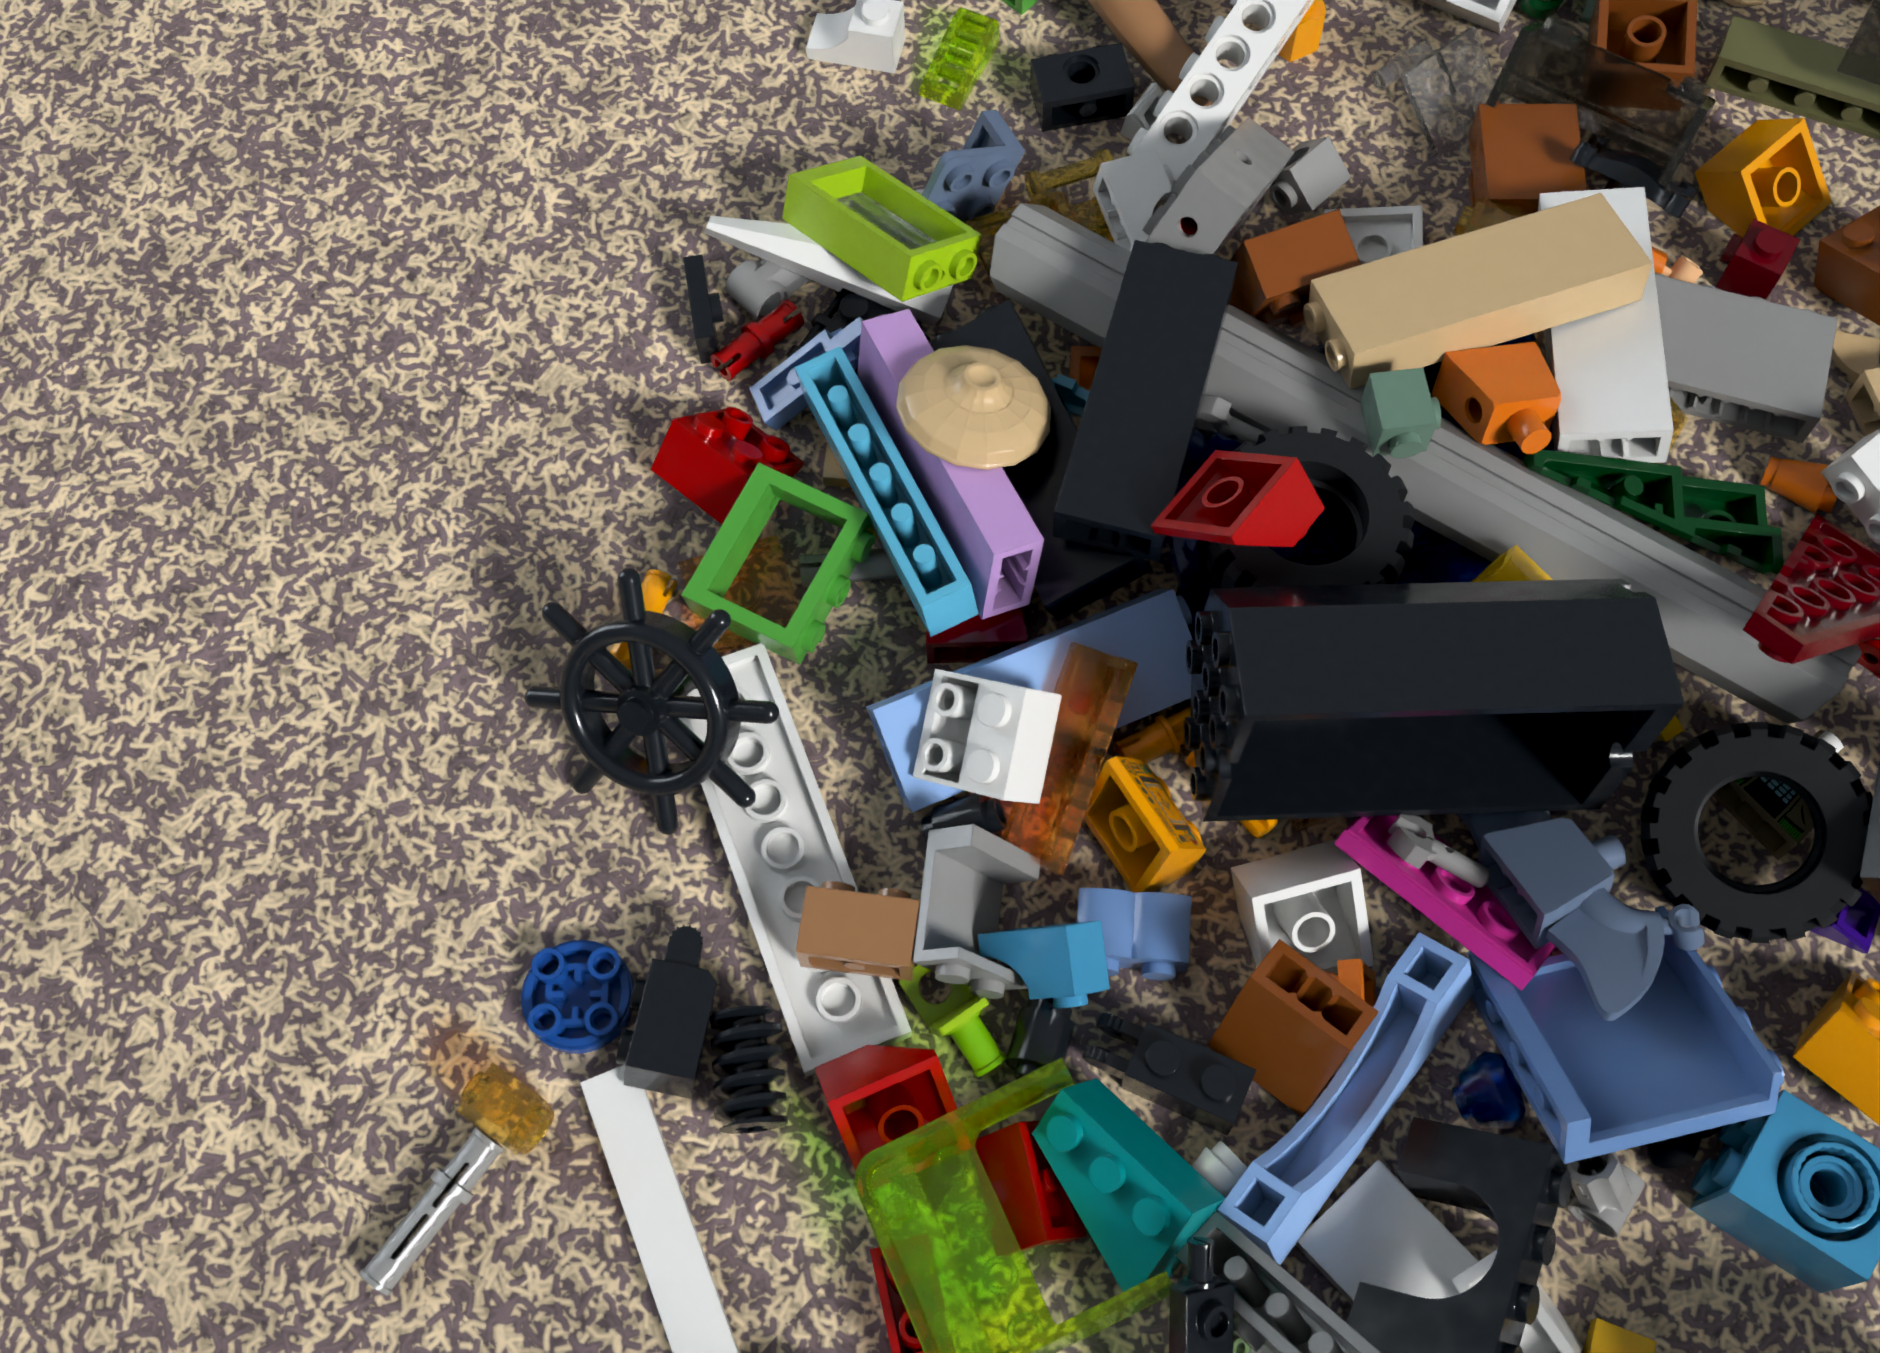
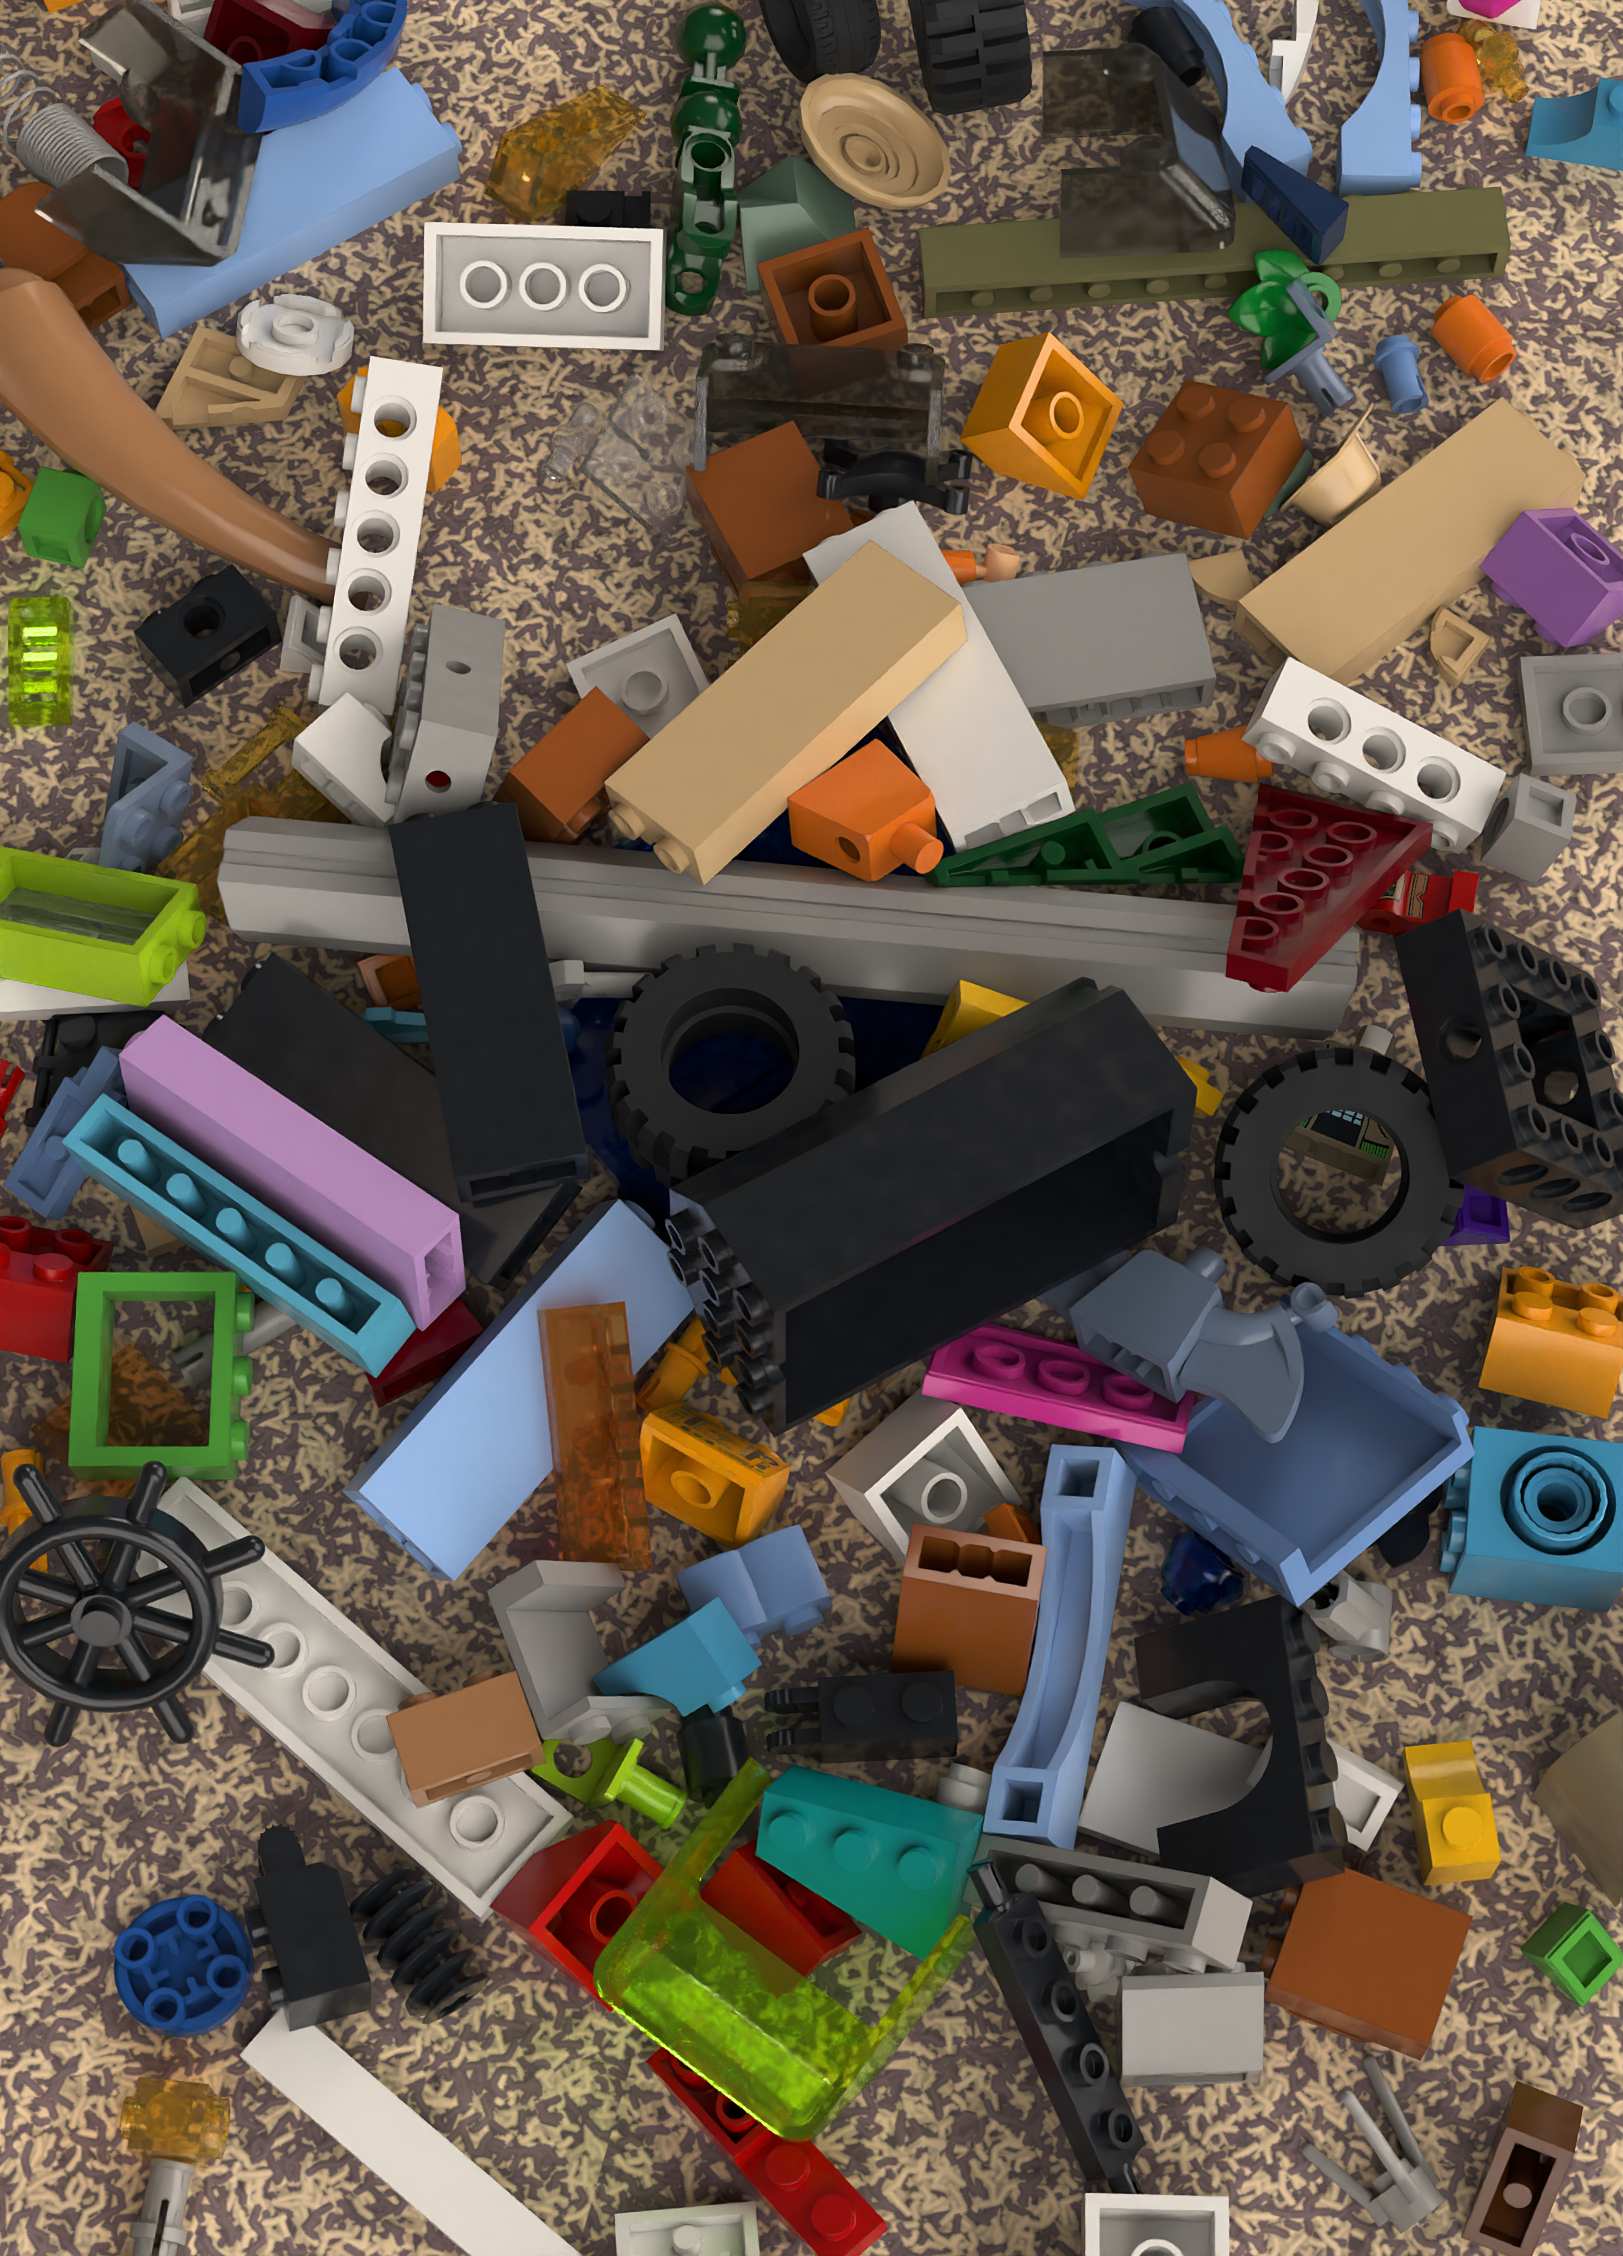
camera: 30 degrees left, 0 degrees up
(967, 810) = (510, 1554): black brick -> none
(974, 407) = (301, 1099): tan hat -> none
(987, 737) = (497, 1459): white slope -> none
(1243, 502) = (654, 1078): red slope -> none
(1309, 176) = (535, 633): light grey brick -> none
(1399, 412) = (771, 892): sand green brick -> none
(1415, 843) = (1005, 1352): light grey bar -> none
(1756, 260) = (1071, 518): dark red brick -> none

